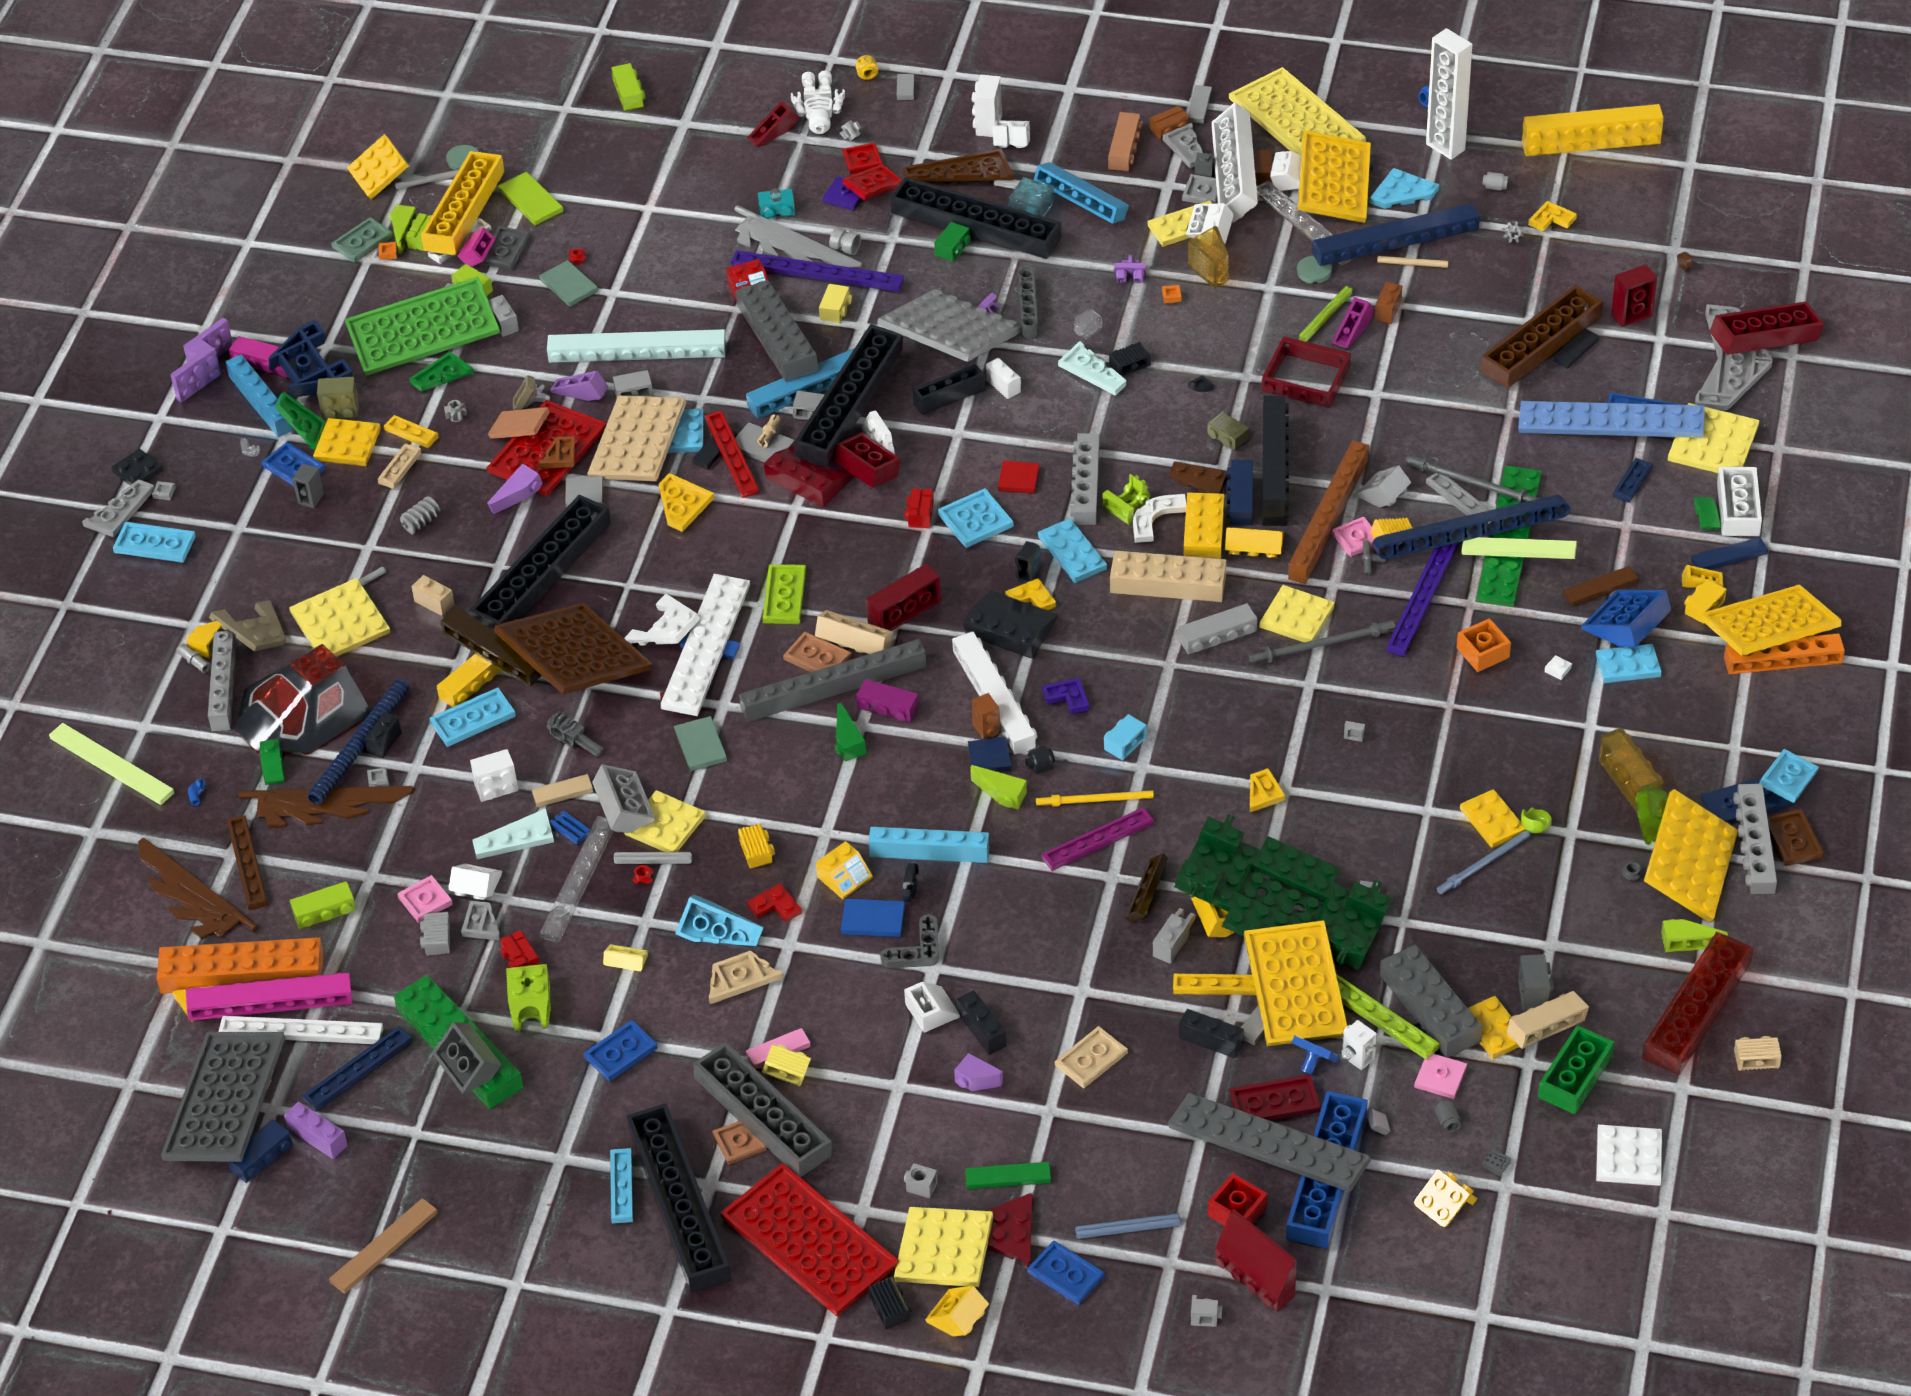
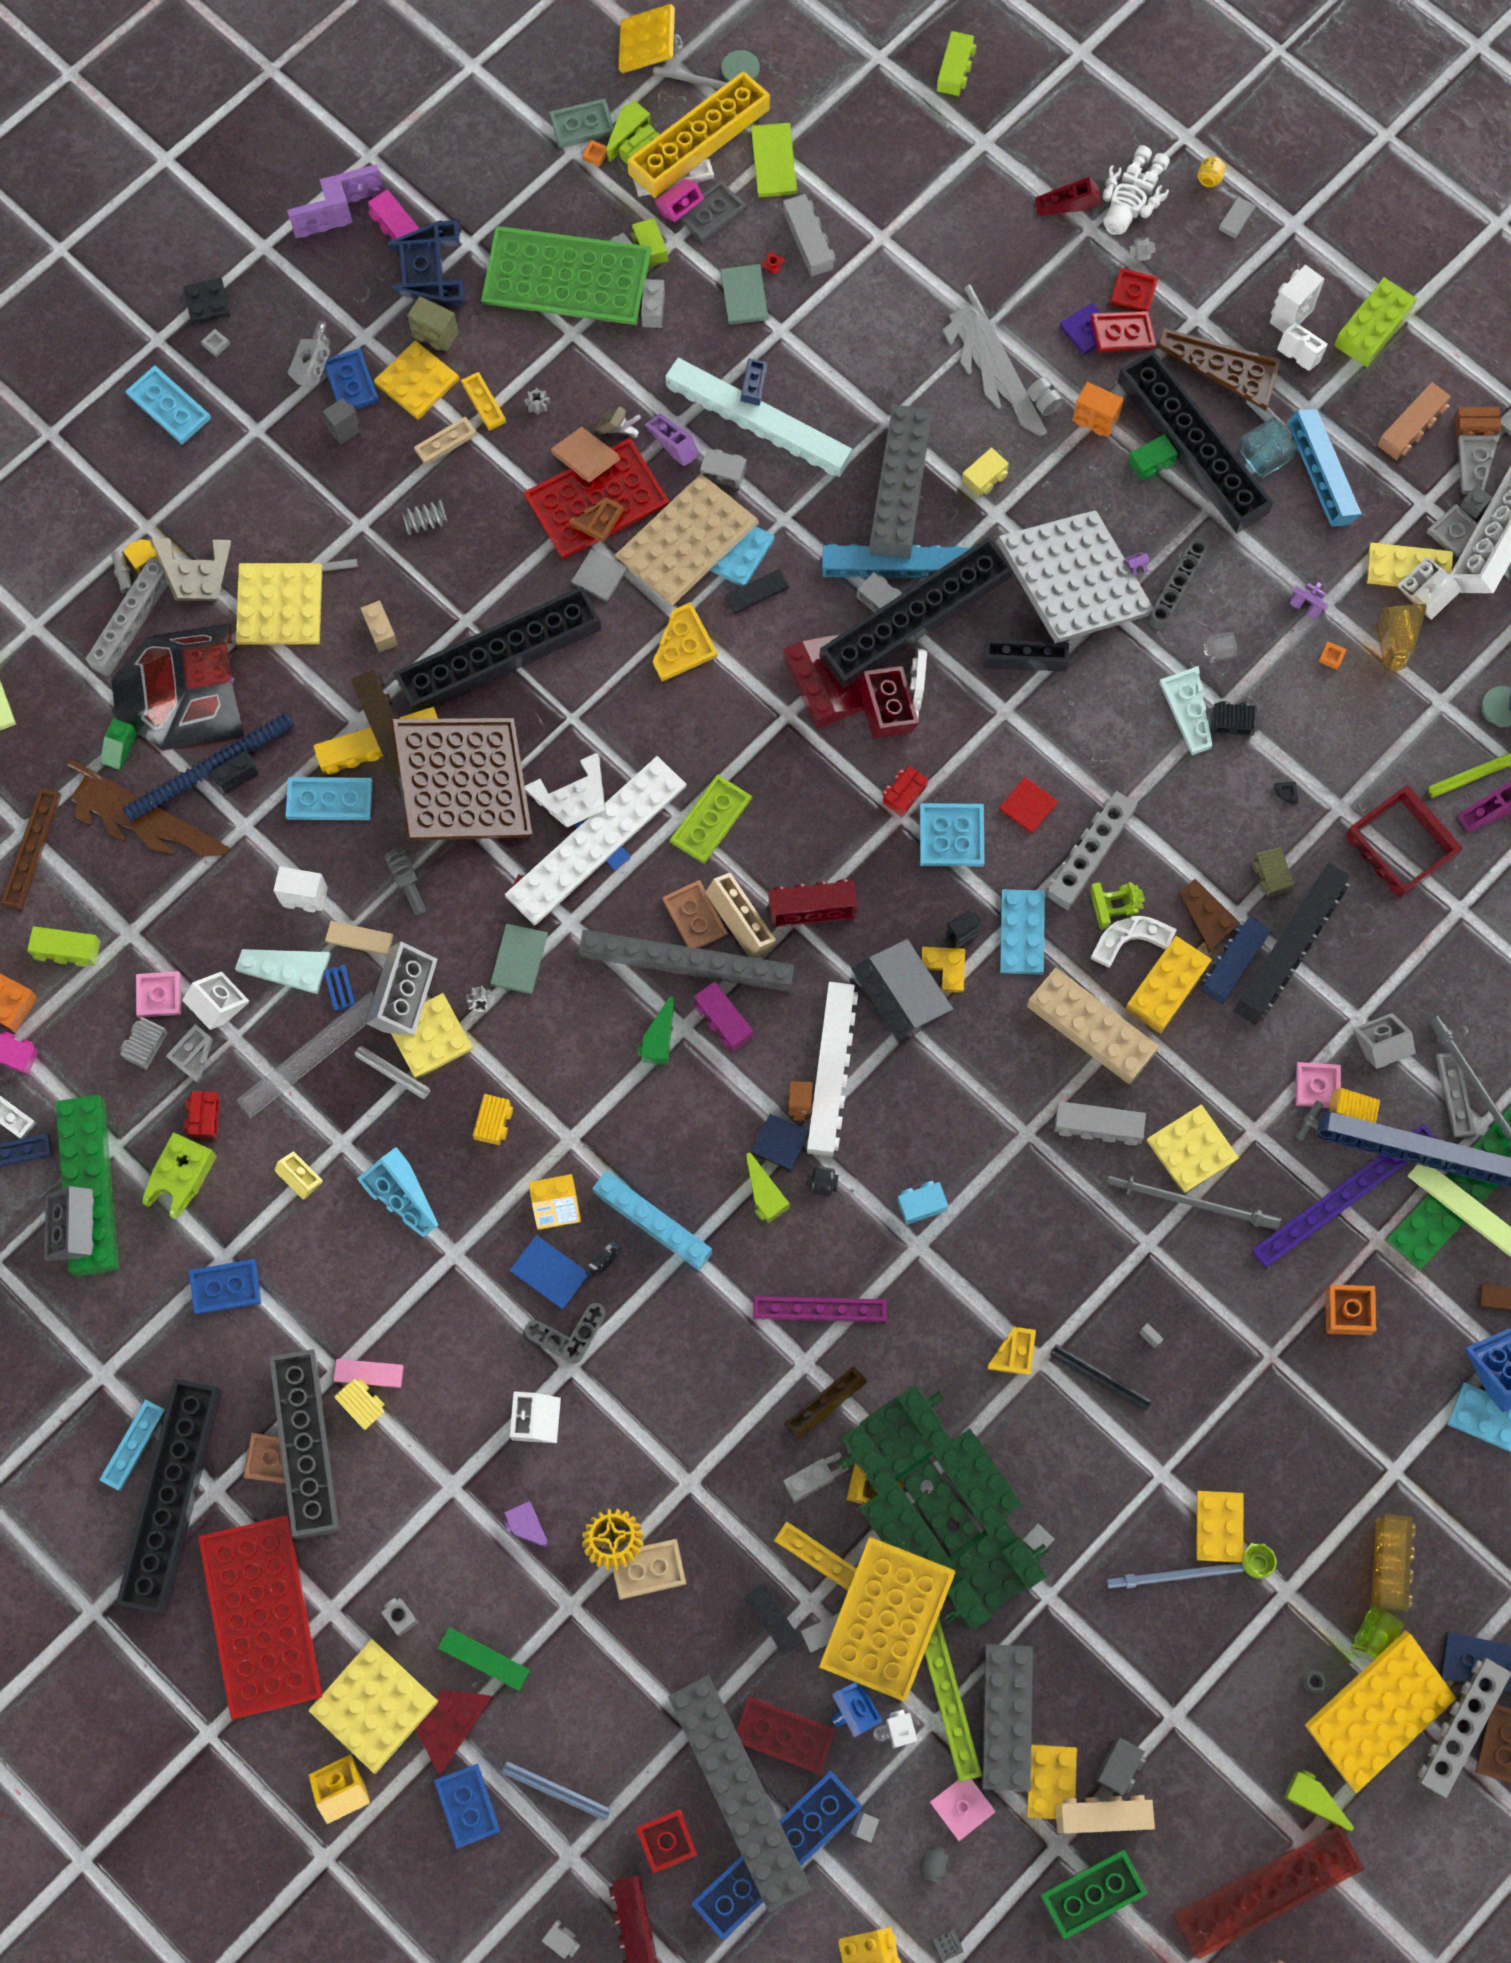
camera: 30 degrees right, 25 degrees up
(119, 510) = (155, 348): light grey wing -> none
(195, 790) = (32, 735): blue arm -> none
(253, 464) = (309, 362): none -> light grey brick
(257, 394) = (366, 275): dark azure brick -> none
(302, 419) = (383, 333): green wing -> none
(378, 777) = (203, 819): light grey tile -> none
(441, 371) = (553, 342): green wing -> none
(516, 489) = (536, 538): medium lavender slope -> none
(592, 227) = (808, 235): none -> light grey brick
(617, 325) = (753, 382): none -> dark blue tile
(643, 874) = (368, 1082): red plate -> none
(689, 778) = (479, 999): none -> light grey gear
(732, 454) = (765, 612): red tile -> none
(740, 975) = (384, 1266): tan wing -> none
(745, 275) = (918, 390): red slope -> none
(748, 443) = (804, 613): light grey tile -> none
(769, 431) = (818, 605): tan pin -> none
(775, 899) = (474, 1193): red plate -> none
(776, 202) = (1008, 305): teal piece -> none
(822, 271) = (995, 419): dark purple plate -> none
(889, 1302) = (285, 1739): black brick -> none
(890, 229) = (1097, 409): none -> orange brick
(981, 1022) = (568, 1467): black brick -> none
(1003, 378) = (1090, 670): white brick -> none
(1050, 1046) = (603, 1540): none -> yellow gear
(1052, 99) = (1375, 322): none -> lime brick
(1056, 800) = (809, 1239): yellow bar -> none
(1068, 691) = (906, 1112): dark purple plate -> none
(1254, 541) = (1209, 1031): yellow slope -> none
(1328, 512) = (1307, 1040): dark orange brick -> none
(1337, 775) = (1100, 1377): none -> black axle
(1558, 667) = (1412, 1378): white plate -> none

